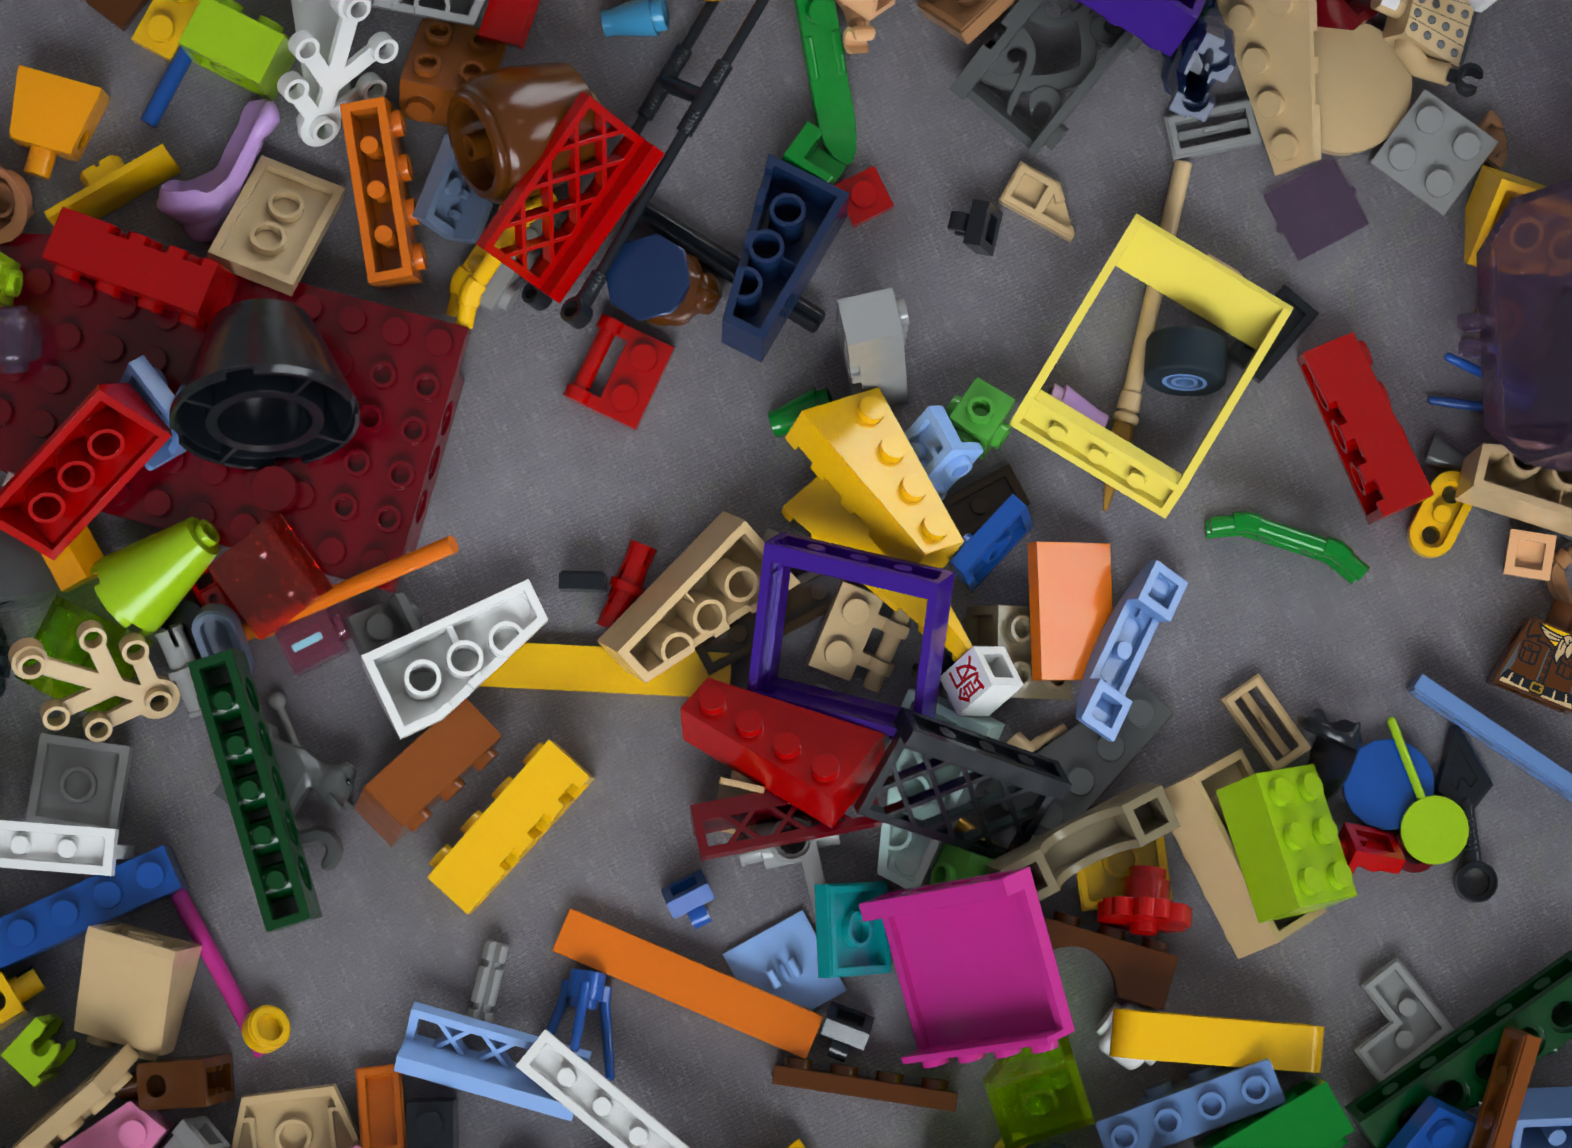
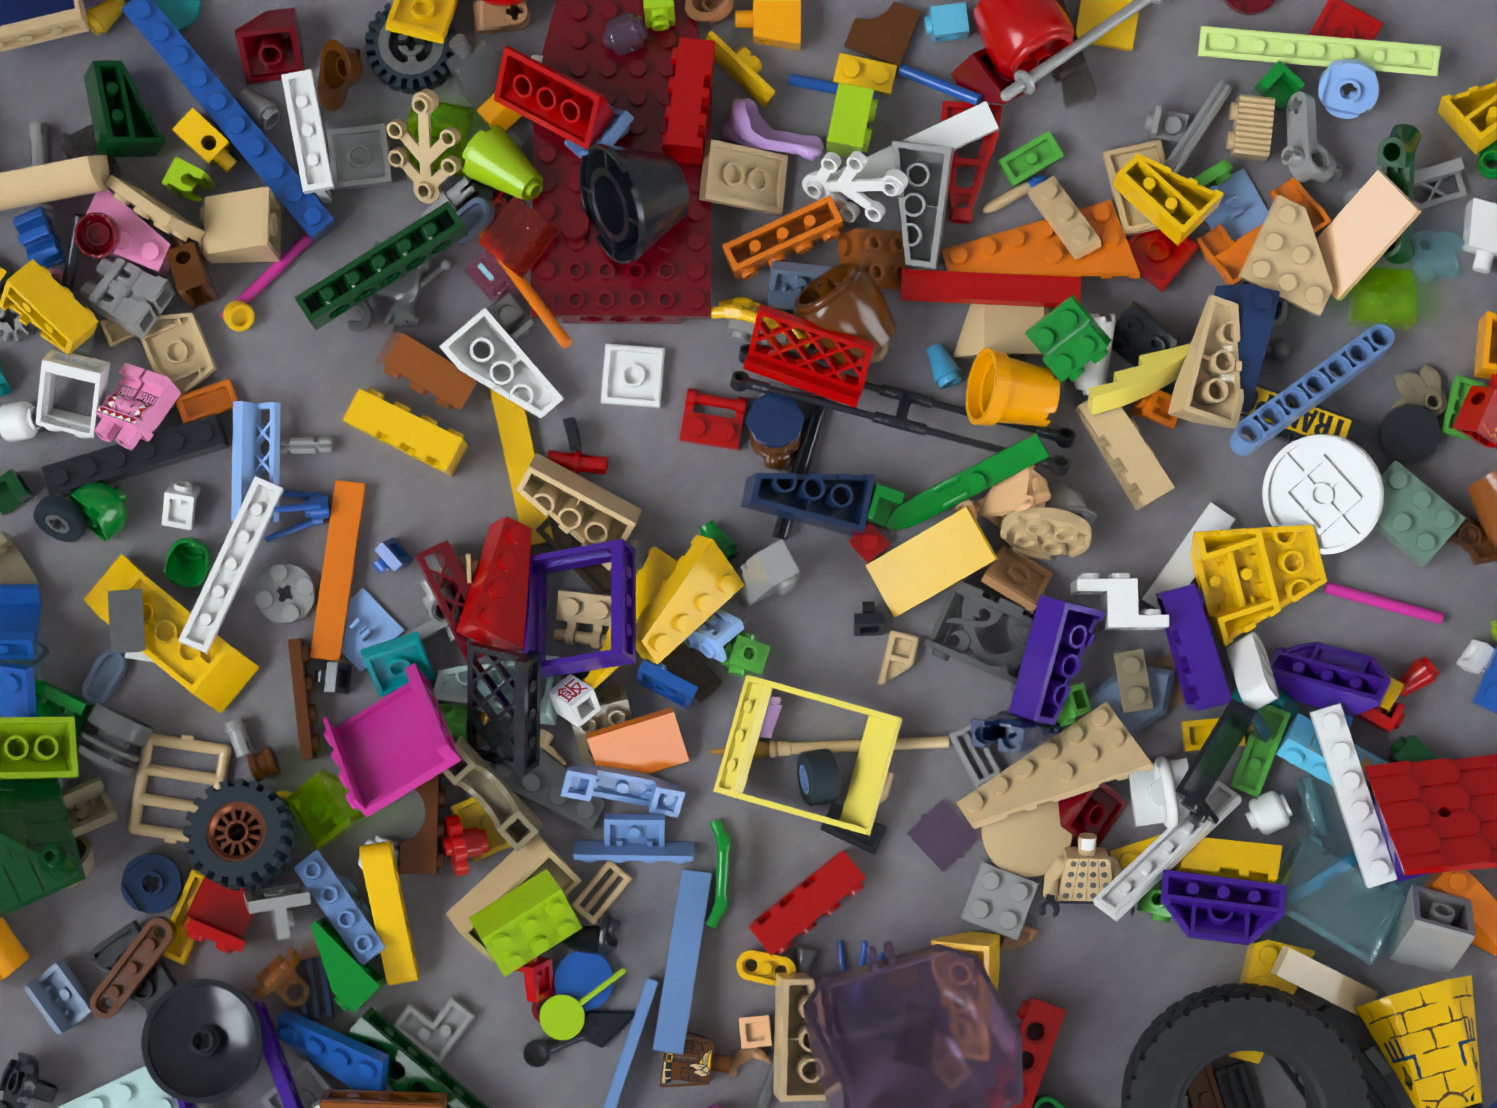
camera: 70 degrees right, 0 degrees up
(521, 471) = (632, 375): none -> white tile
(673, 1072) = (290, 610): none -> light grey plate
(918, 110) = (931, 562): none -> yellow tile
(1204, 654) = (634, 839): none -> medium blue bracket
(1402, 631) = (682, 962): none -> medium blue tile

